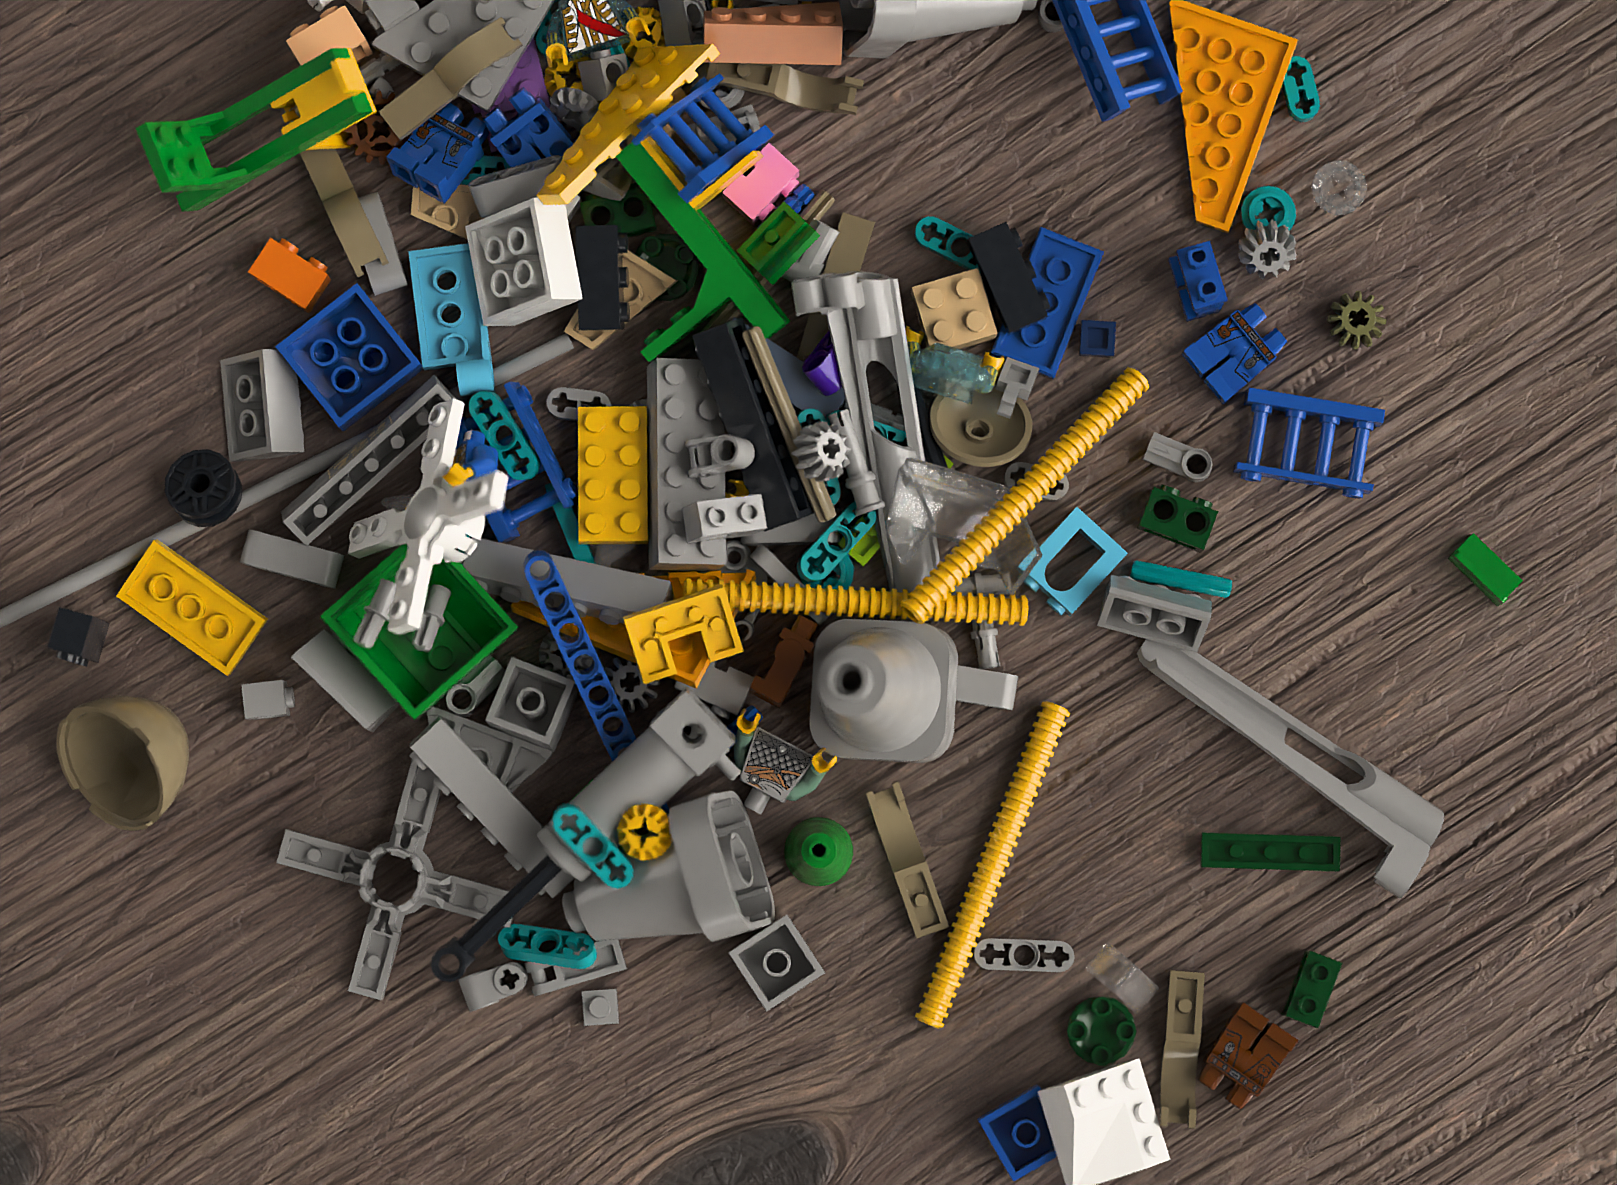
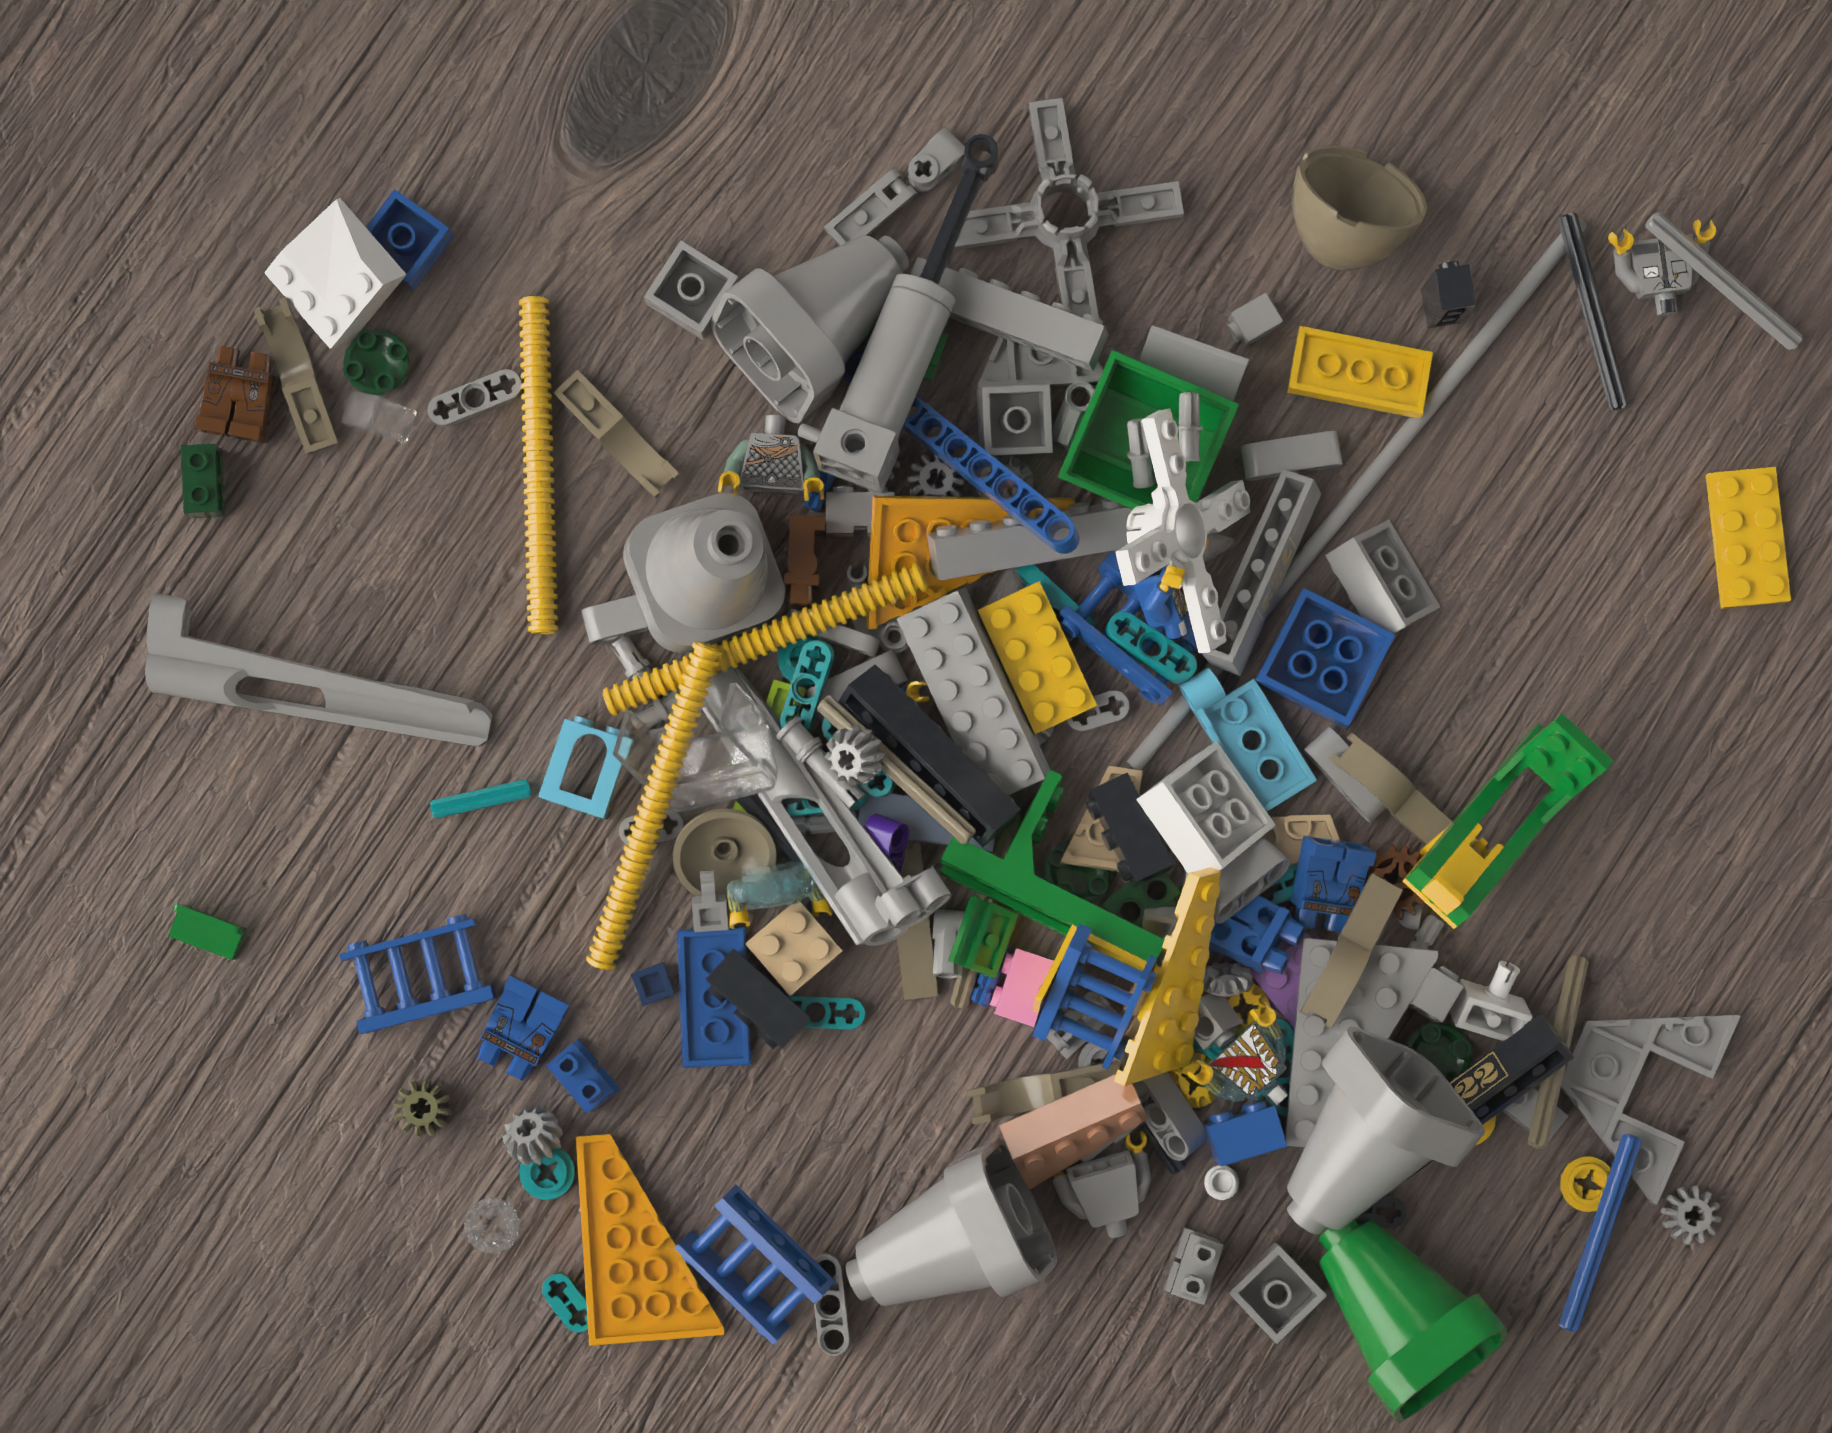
camera: 155 degrees right, 0 degrees up
(190, 474) = (1419, 486): black wheel -> none
(289, 274) = (1413, 711): orange brick -> none
(333, 30) = (1476, 939): light nougat brick -> none
(558, 956) = (888, 210): teal beam -> none
(600, 1007) = (832, 185): light grey plate -> none
(603, 871) = (918, 322): teal beam -> none
(655, 626) = (899, 561): yellow plate -> none
(656, 821) = (850, 349): yellow gear -> none
(713, 456) = (950, 708): light grey piece -> none
(724, 518) = (915, 655): light grey brick -> none
(824, 869) = (701, 419): green cone -> none
(1155, 613) = (489, 755): light grey slope -> none
(1174, 457) = (534, 906): light grey piece -> none
(1175, 527) = (507, 842): dark green brick -> none
(1270, 852) = (292, 587): dark green plate -> none

